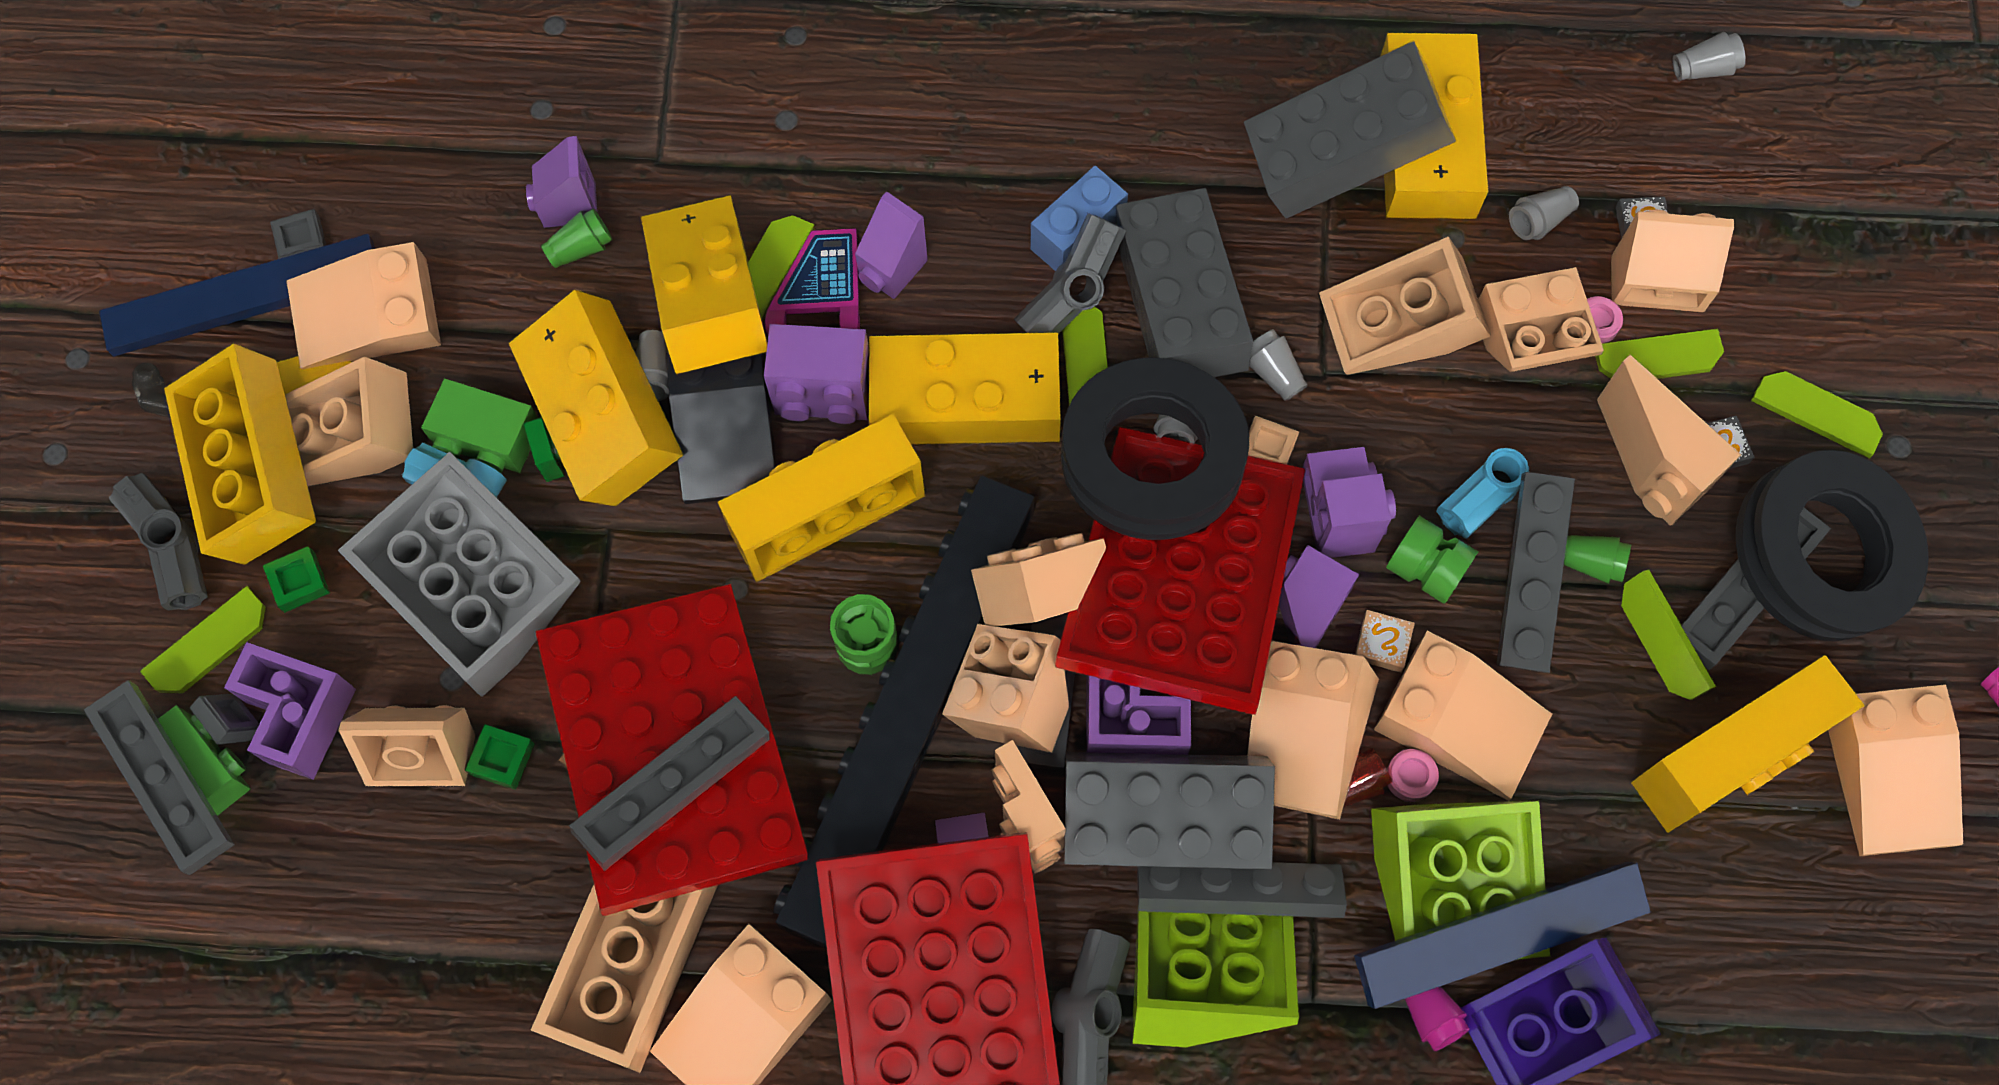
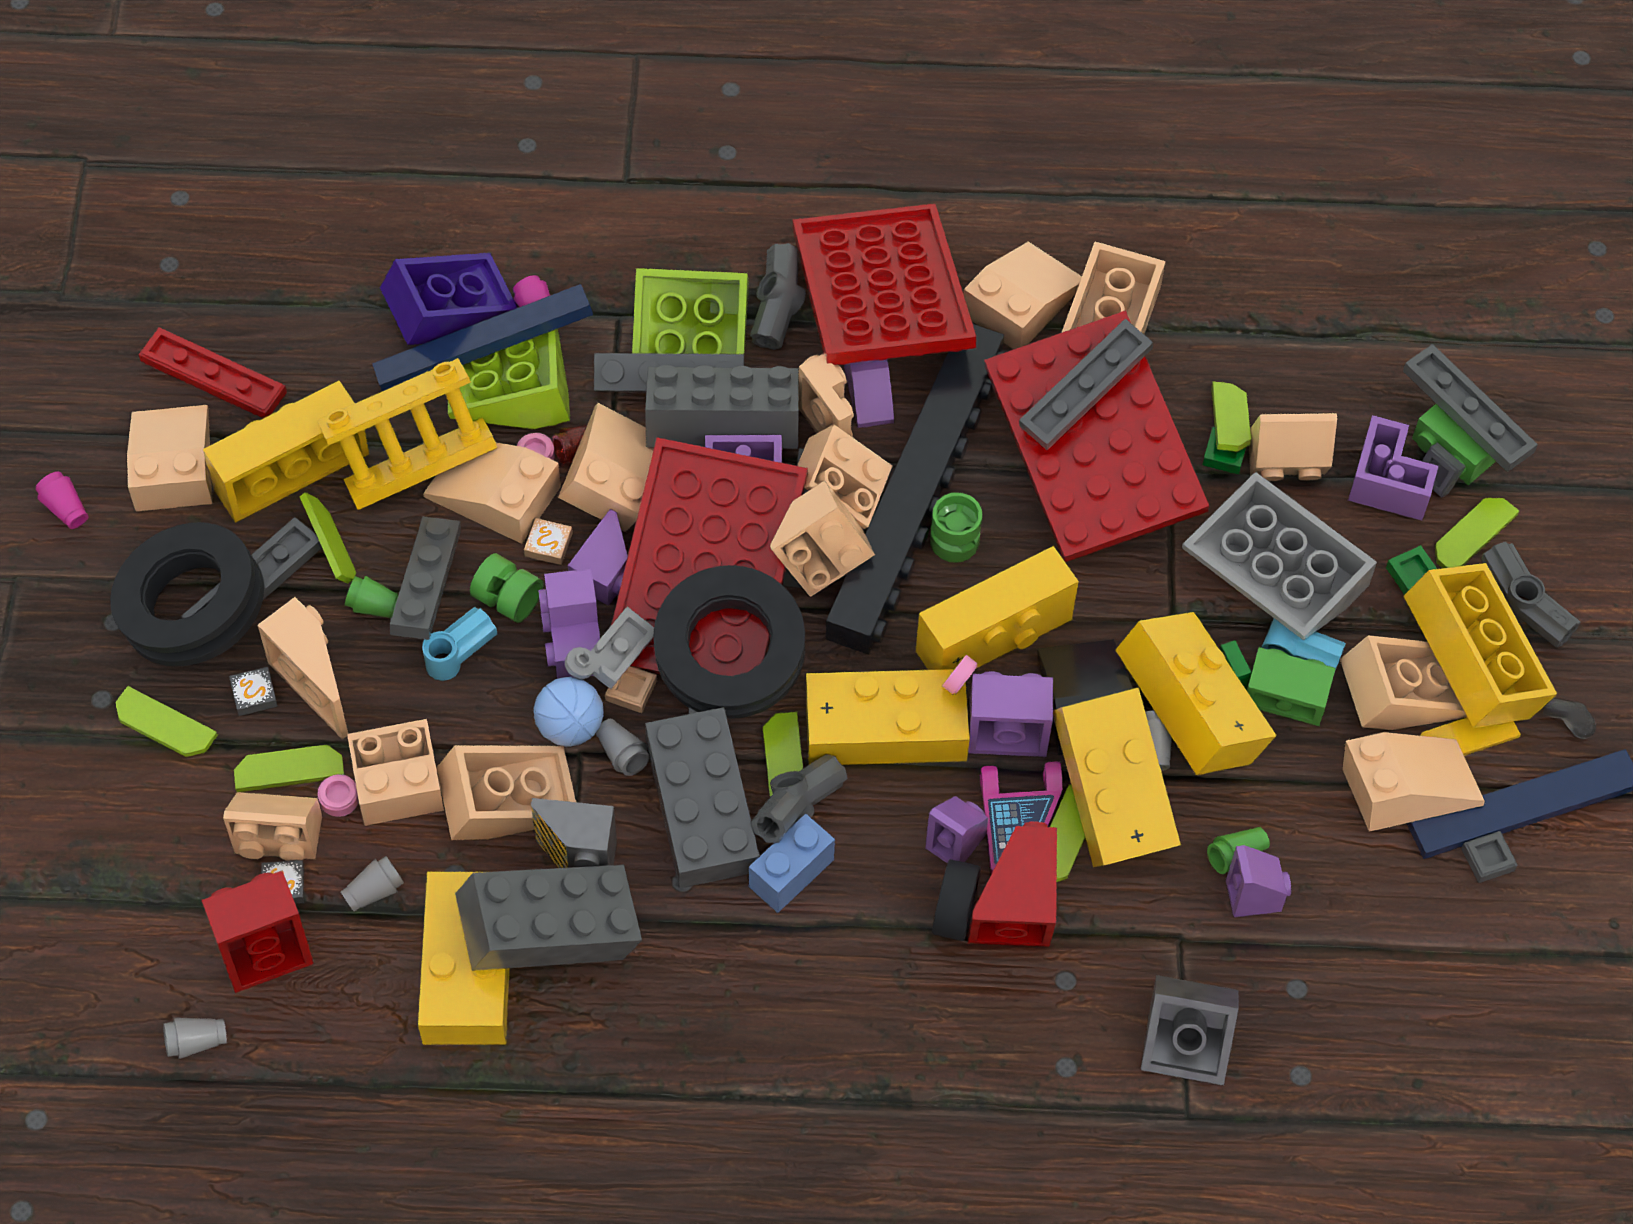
camera: 175 degrees right, 10 degrees down
(484, 803) = (1230, 417): none -> lime piece
(659, 54) = (1190, 1030): none -> flat silver slope
(829, 165) = (1021, 891): none -> red slope
(875, 393) = (960, 675): none -> bright pink tile
(897, 162) = (956, 900): none -> black tyre
(1294, 446) = (613, 651): none -> light grey hinge
(1324, 232) = (575, 832): none -> flat silver slope
(1343, 389) = (568, 711): none -> light blue piece
(1592, 747) = (421, 462): none -> yellow fence
(1667, 115) = (258, 930): none -> red brick
(1868, 907) = (212, 373): none -> red tile

